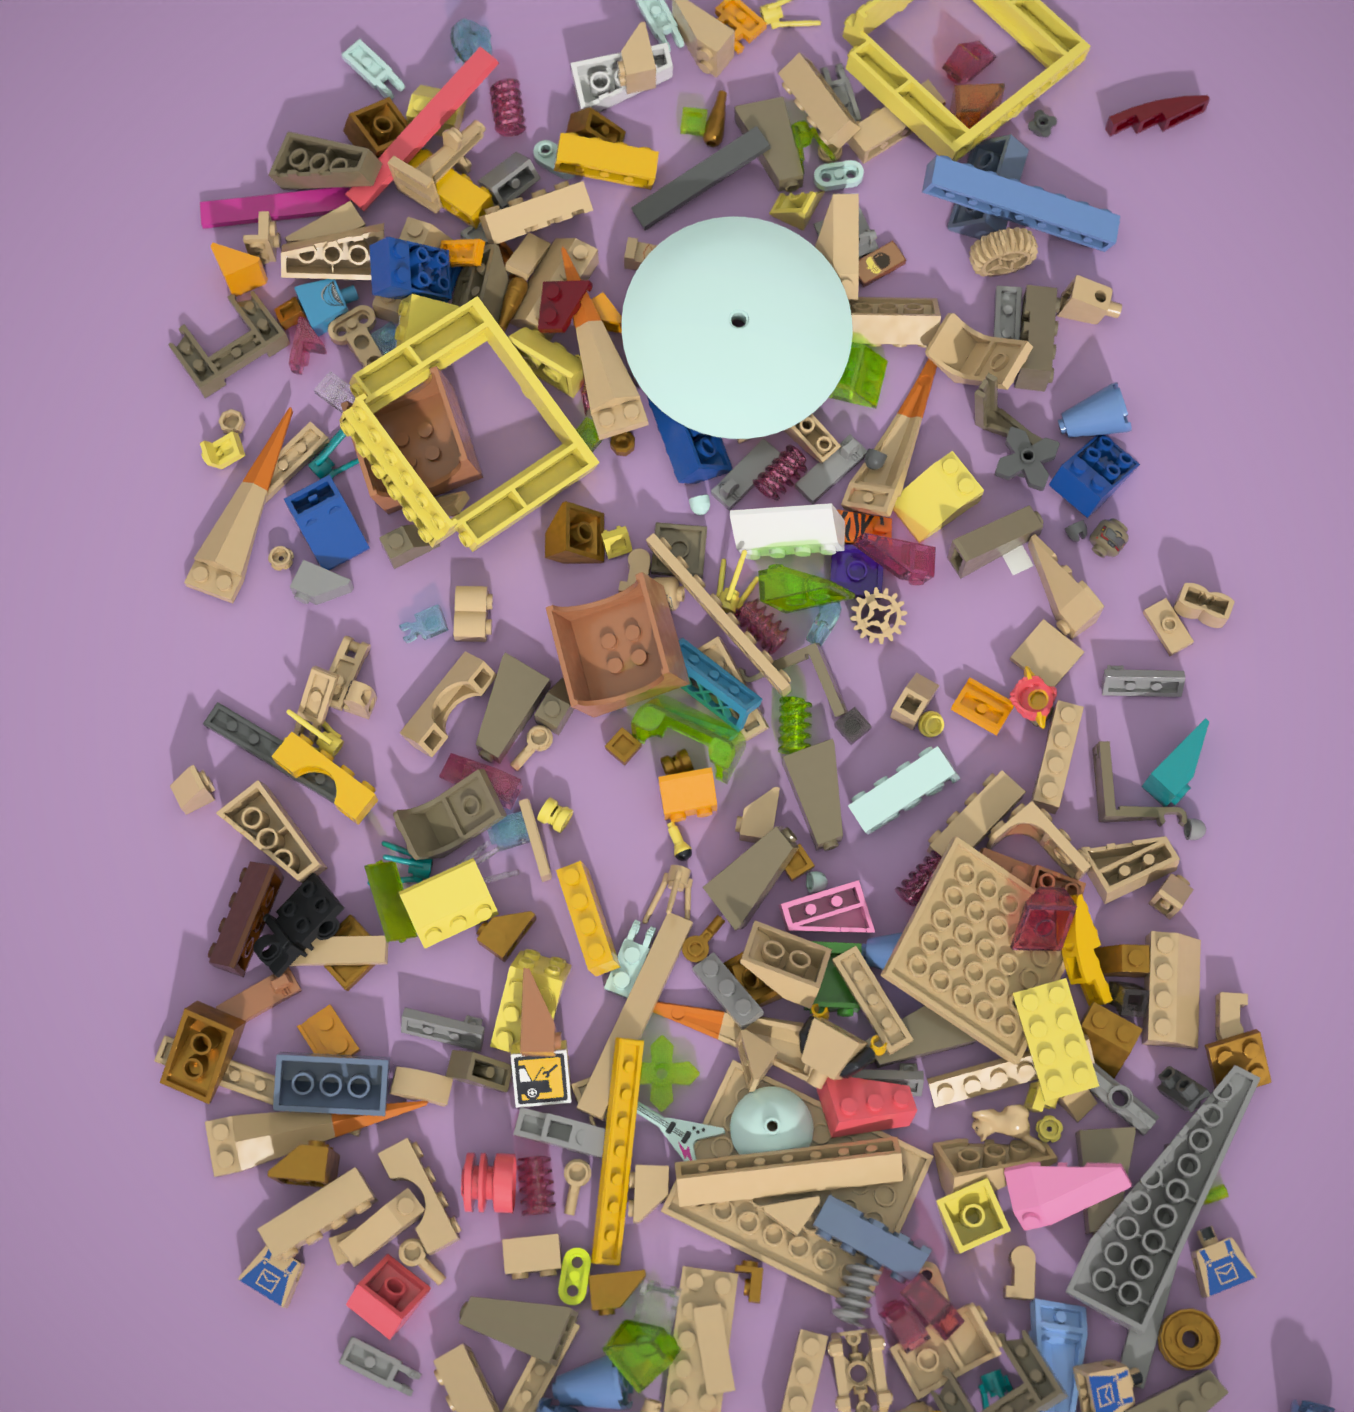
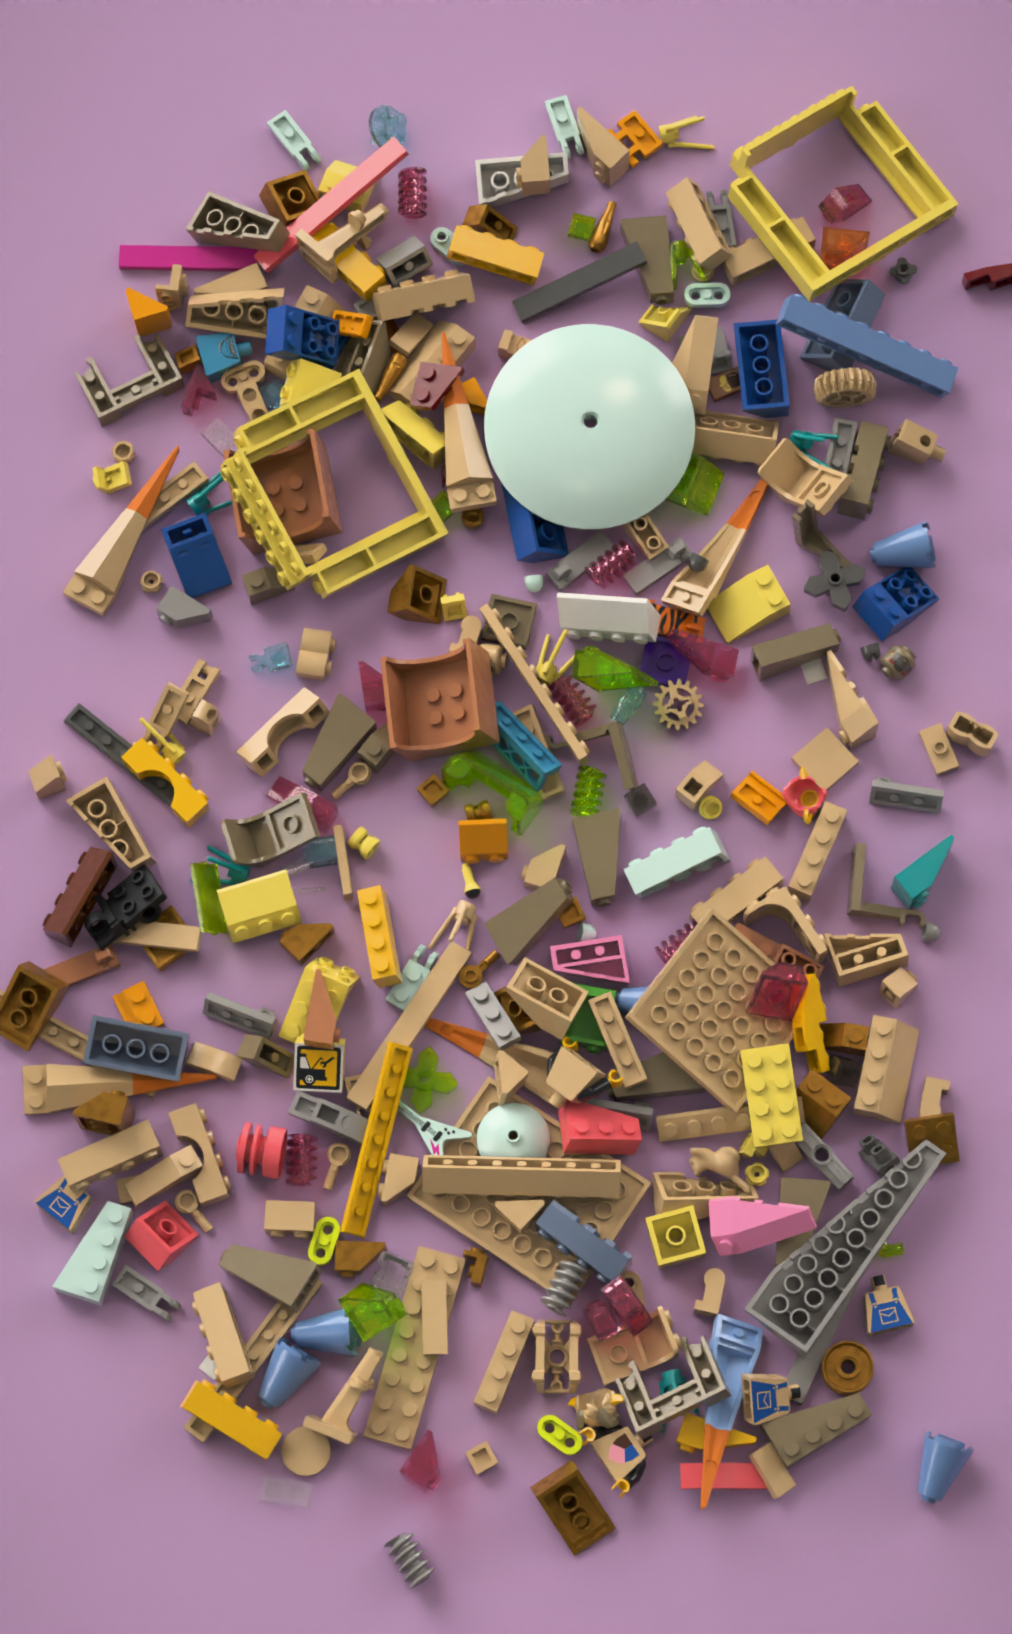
camera: 10 degrees right, 0 degrees up
(316, 1336) = (95, 1259): none -> light aqua wedge
(540, 643) = (372, 688): none -> clear pink slope
(912, 243) = (762, 368): none -> blue slope
(969, 313) = (805, 440): none -> teal plant

